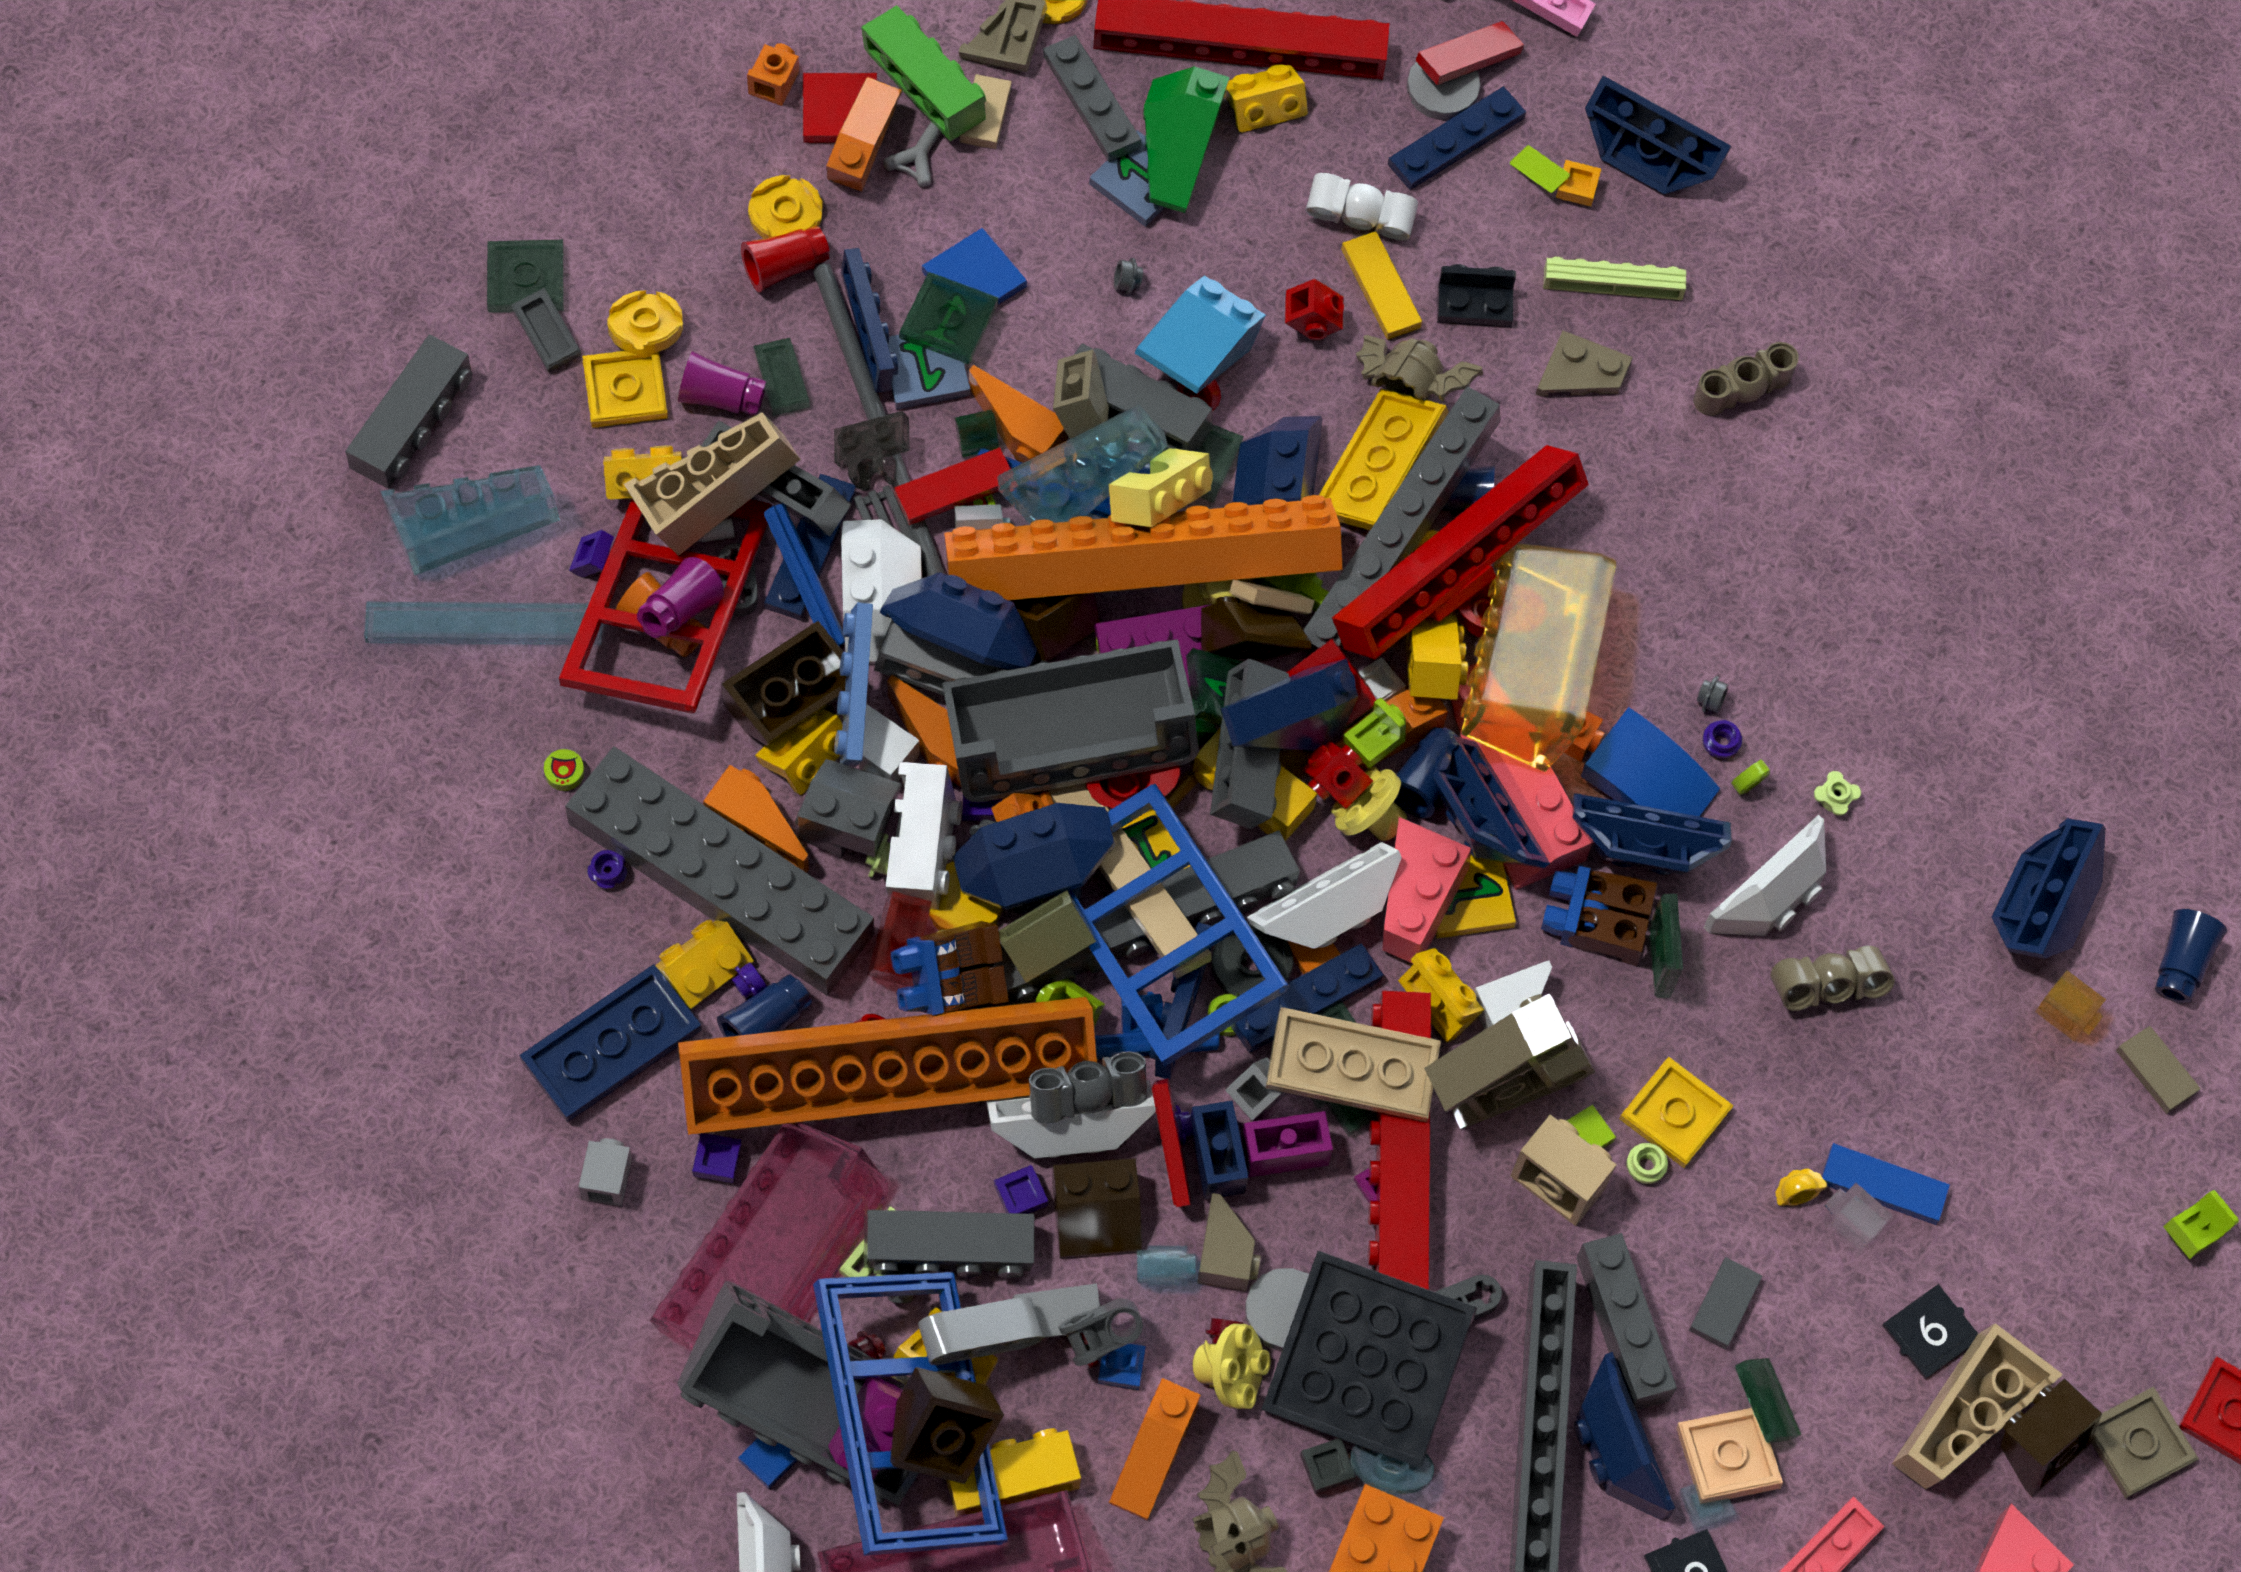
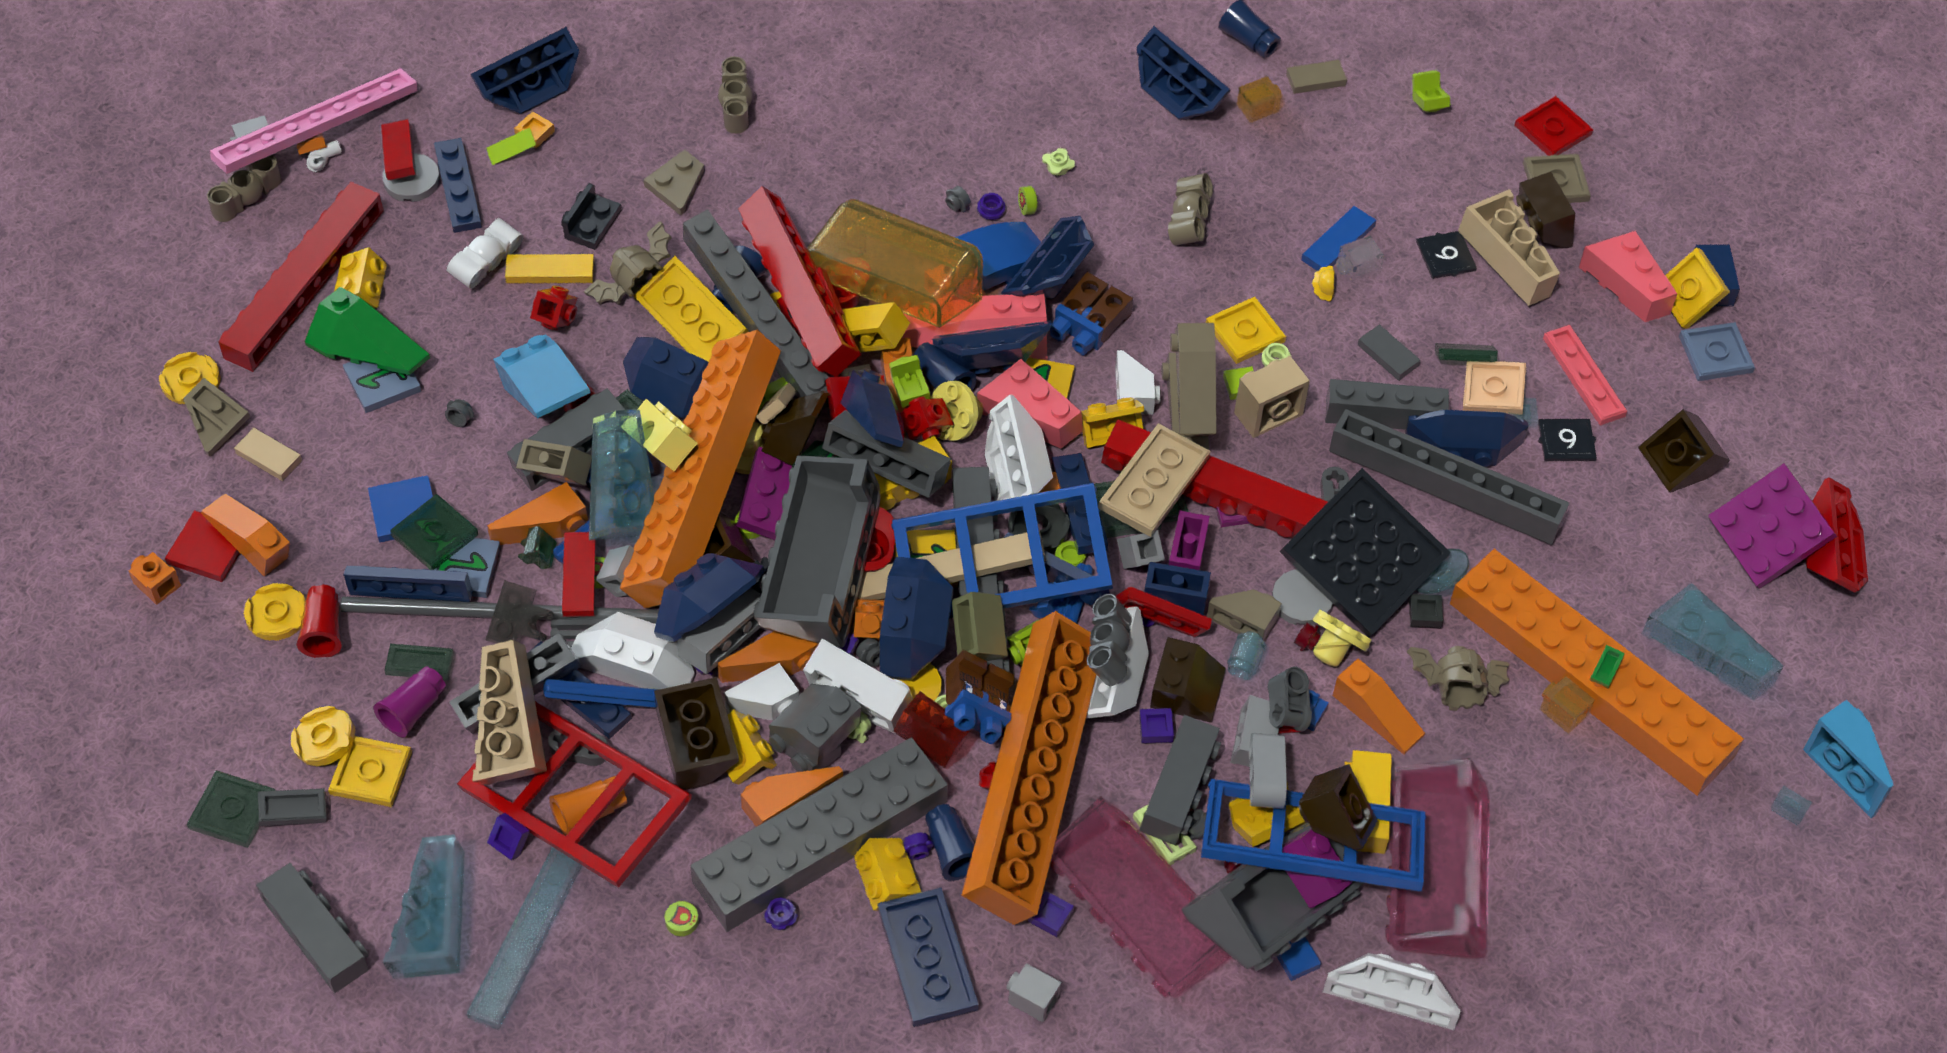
camera: 65 degrees left, 10 degrees down
(625, 466) = (454, 778): yellow bracket -> none
(683, 596) = (590, 771): magenta plant -> none
(855, 667) = (724, 678): medium blue plate -> none
(919, 154) = (279, 509): light grey piece -> none
(924, 72) = (219, 473): bright green brick -> none
(1092, 98) = (298, 382): dark grey plate -> none
(1614, 278) = (618, 138): yellowish green piece -> none
(1666, 946) = (1137, 280): clear green tile -> none
(1776, 887) = (1110, 211): white wedge -> none

